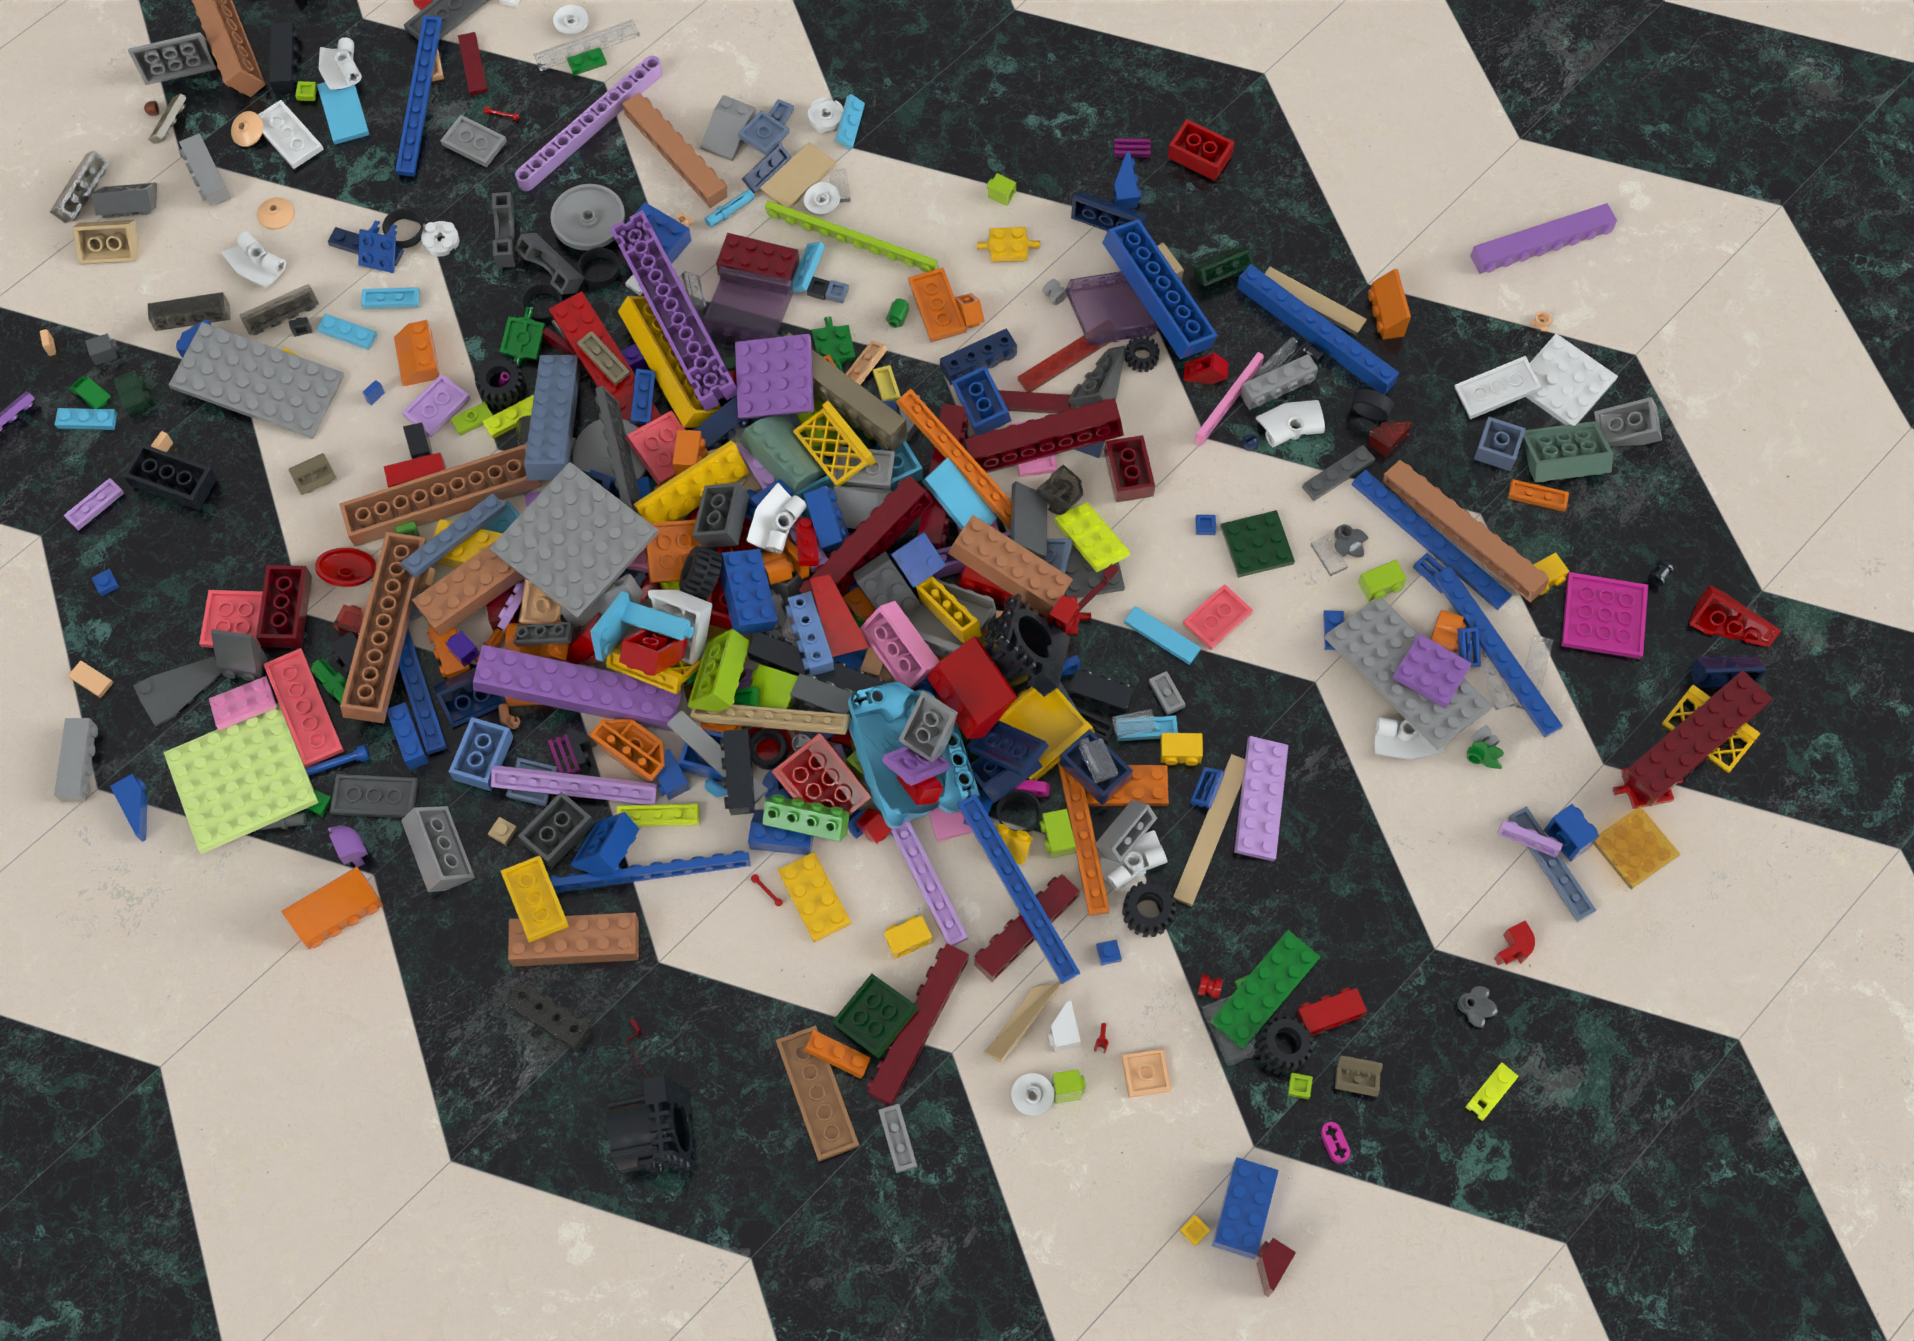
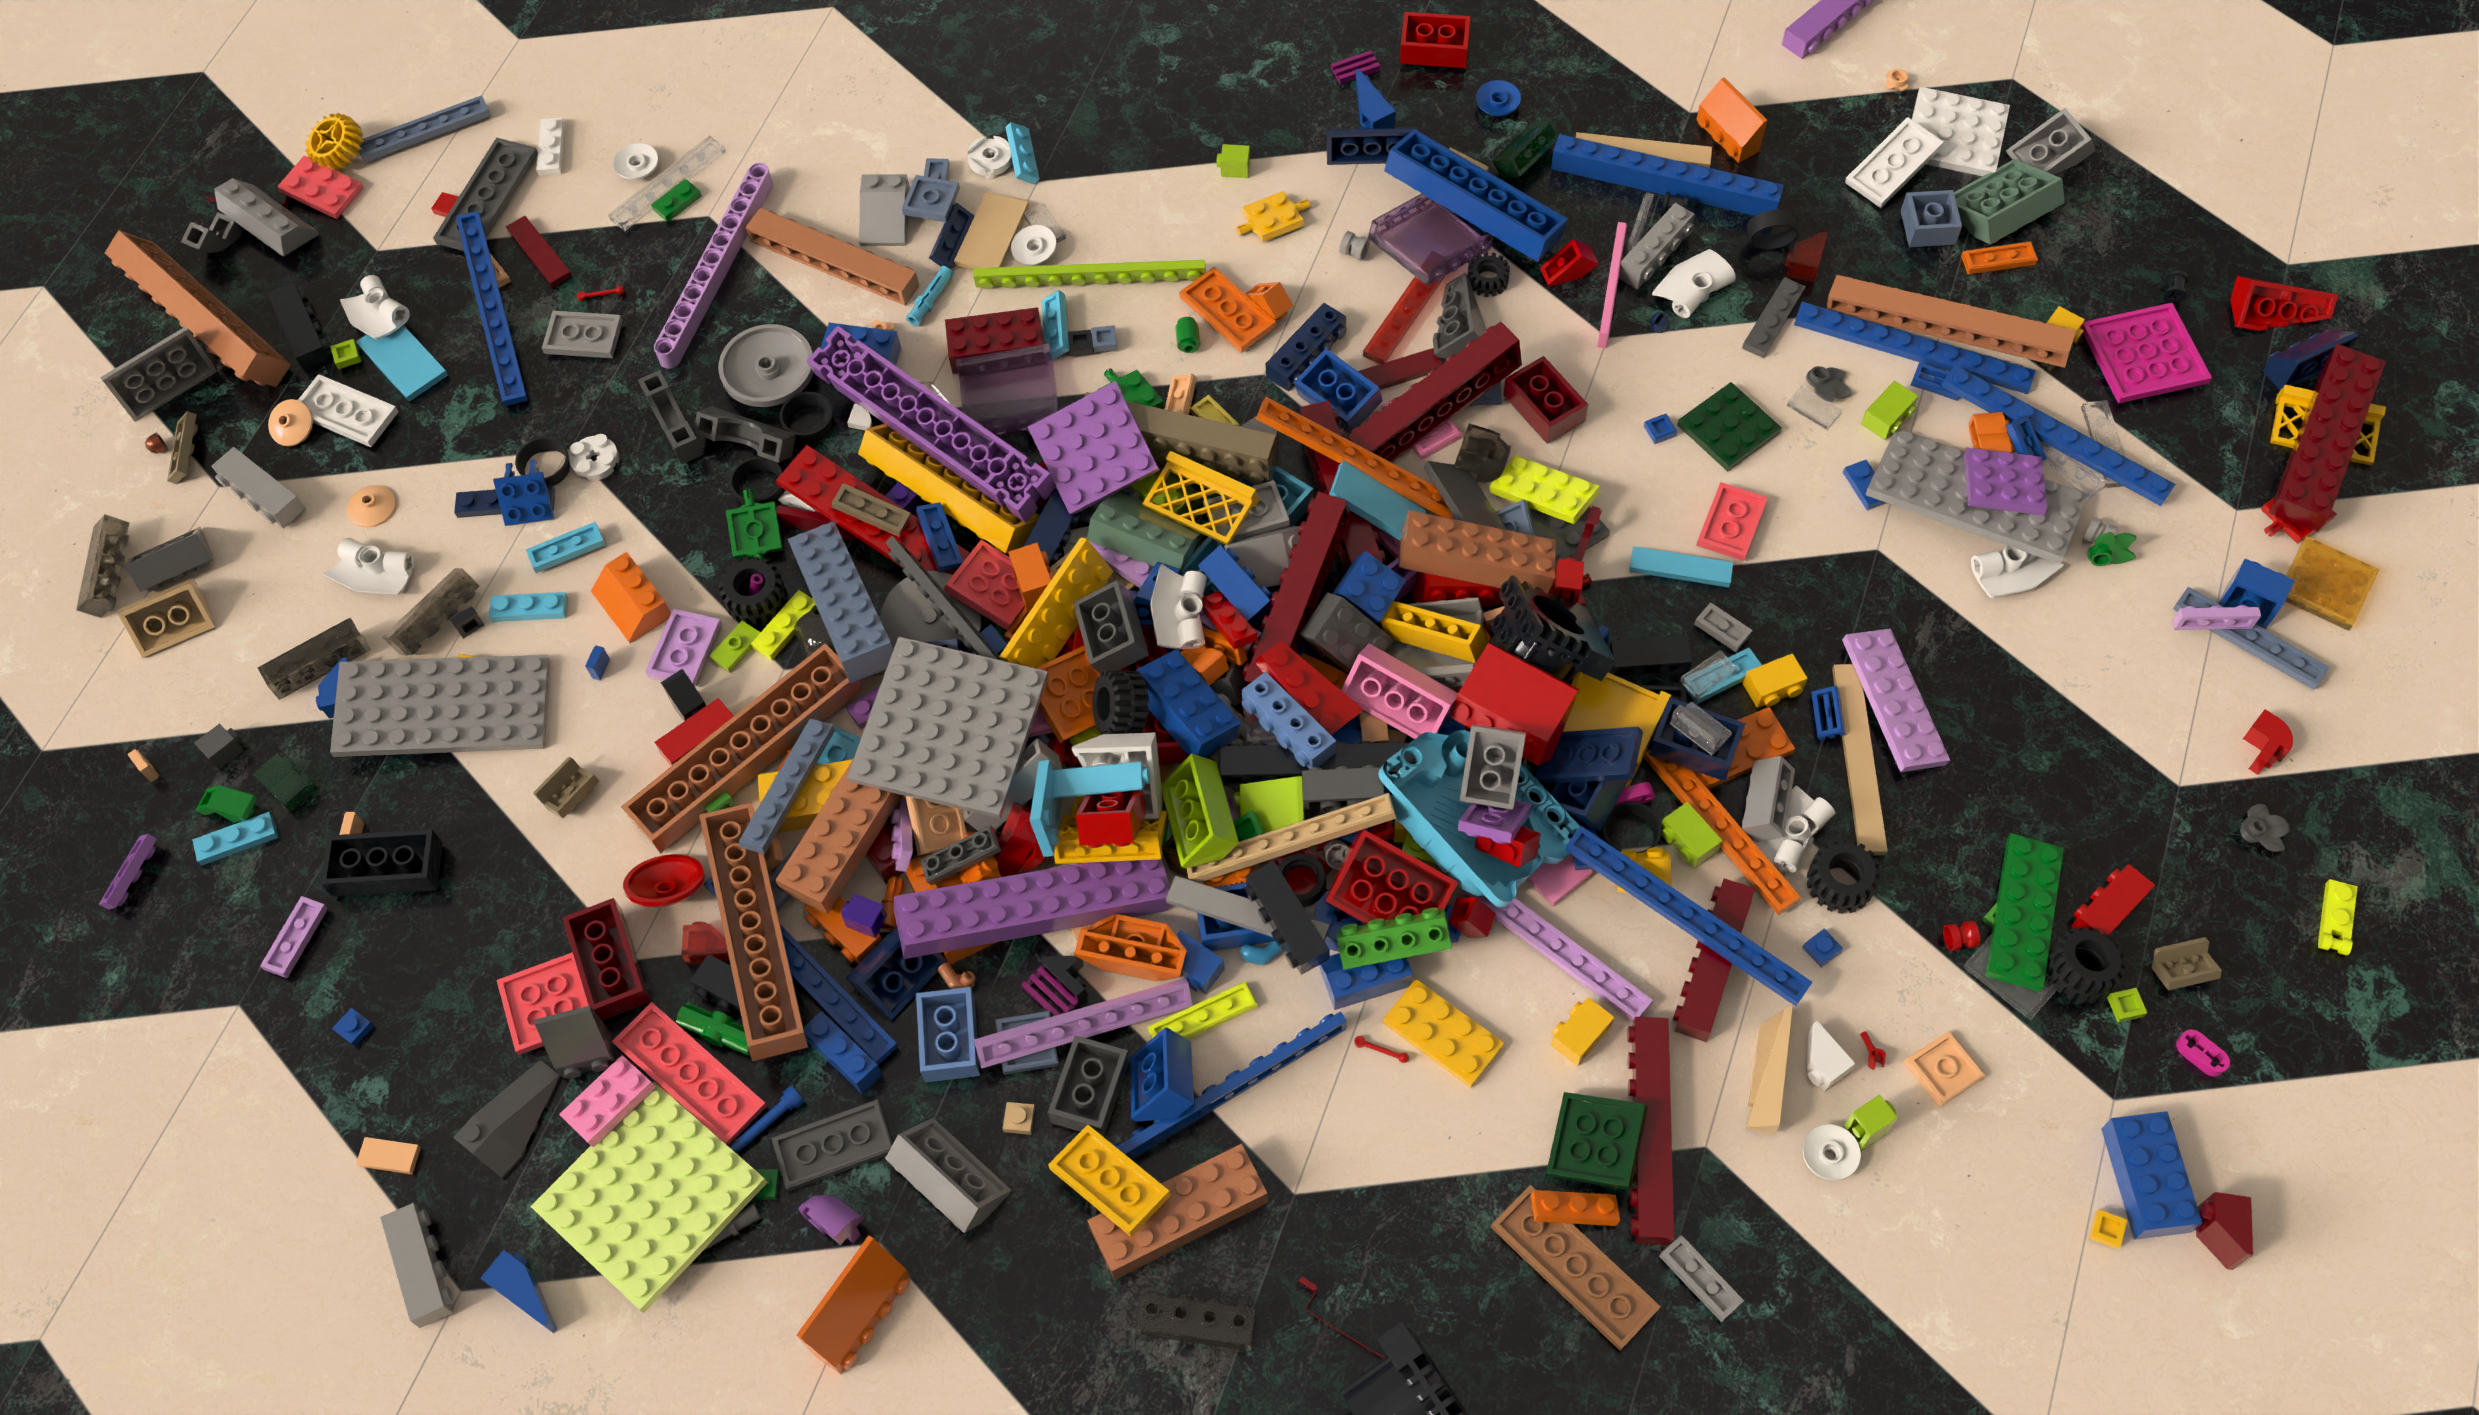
camera: 20 degrees left, 5 degrees down
(1228, 210) = (1498, 98): none -> blue dish

